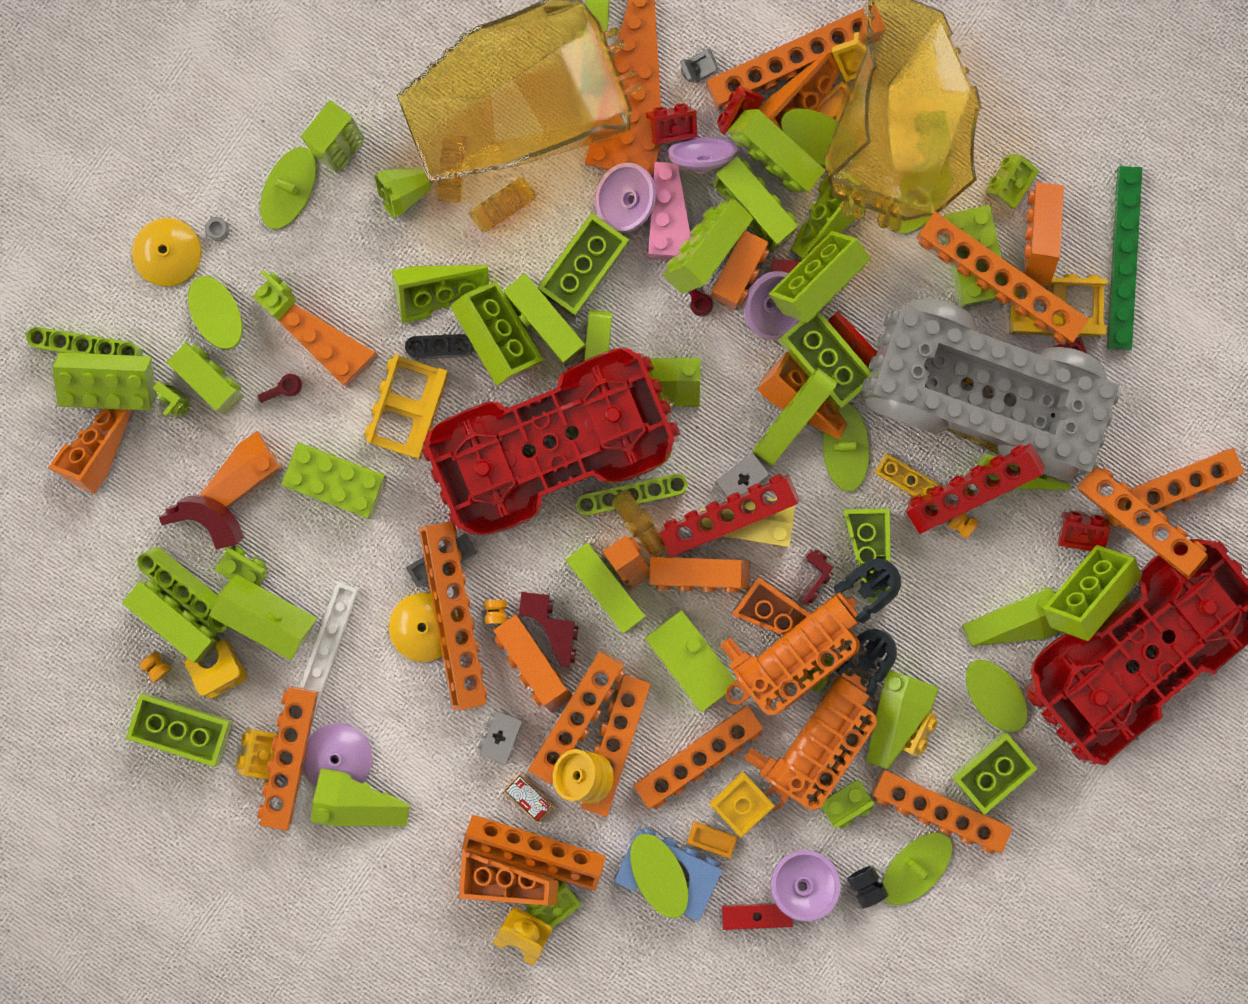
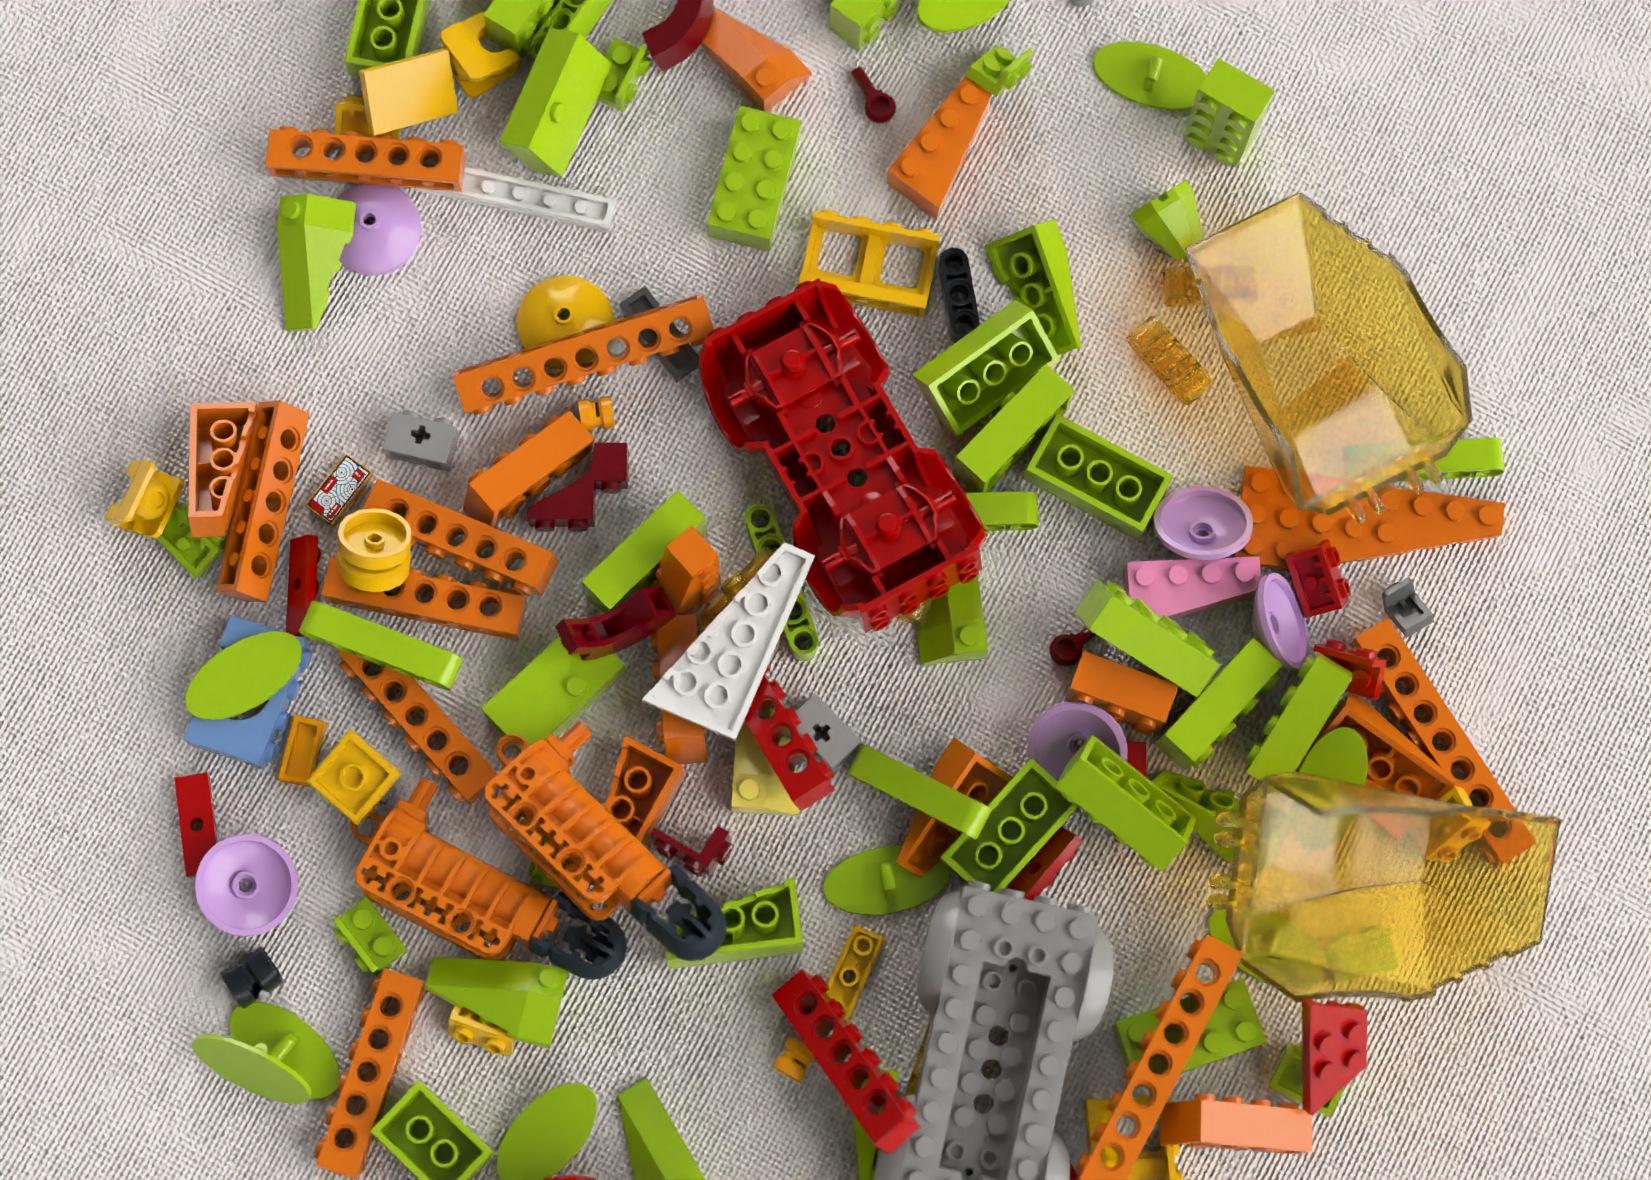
camera: 75 degrees right, 10 degrees down
(242, 722) = (408, 91): none -> yellow tile
(596, 829) = (301, 580): none -> red tile
(650, 778) = (381, 645): none -> lime beam
(657, 612) = (618, 628): none -> dark red arch
(694, 538) = (728, 660): none -> white wing
(930, 891) = (251, 1068): none -> lime shield
(1004, 162) = (1331, 1049): none -> wing

